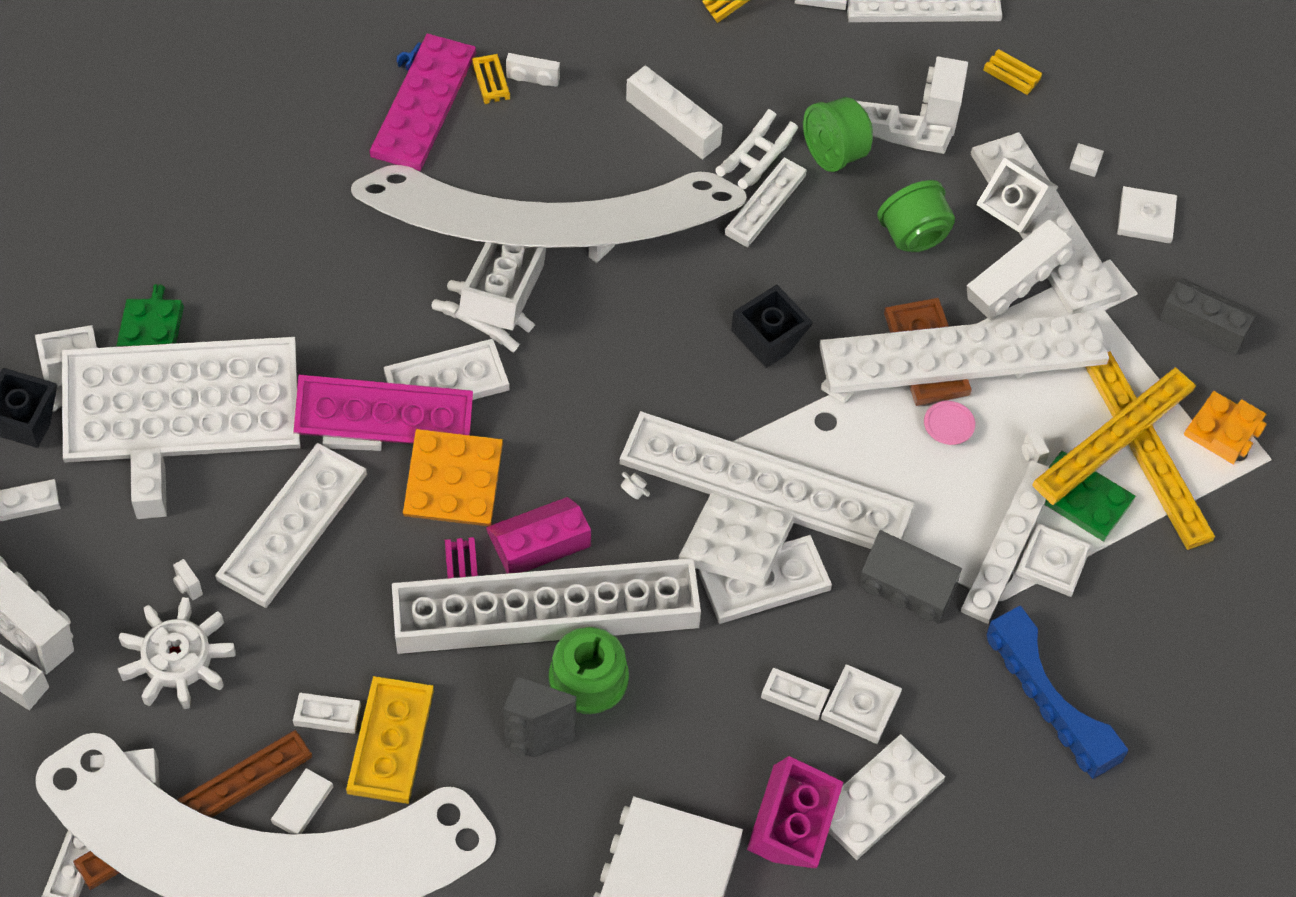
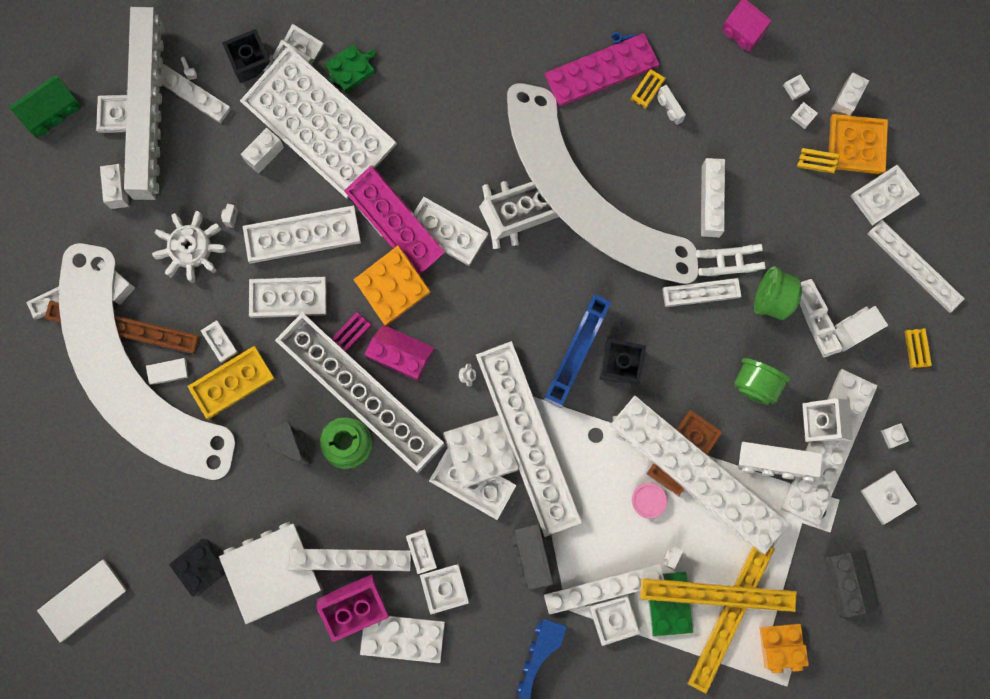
camera: 50 degrees right, 20 degrees up
(350, 597) = (287, 297): none -> white plate
(733, 393) = (577, 351): none -> blue arch
(734, 773) = (349, 560): none -> white plate

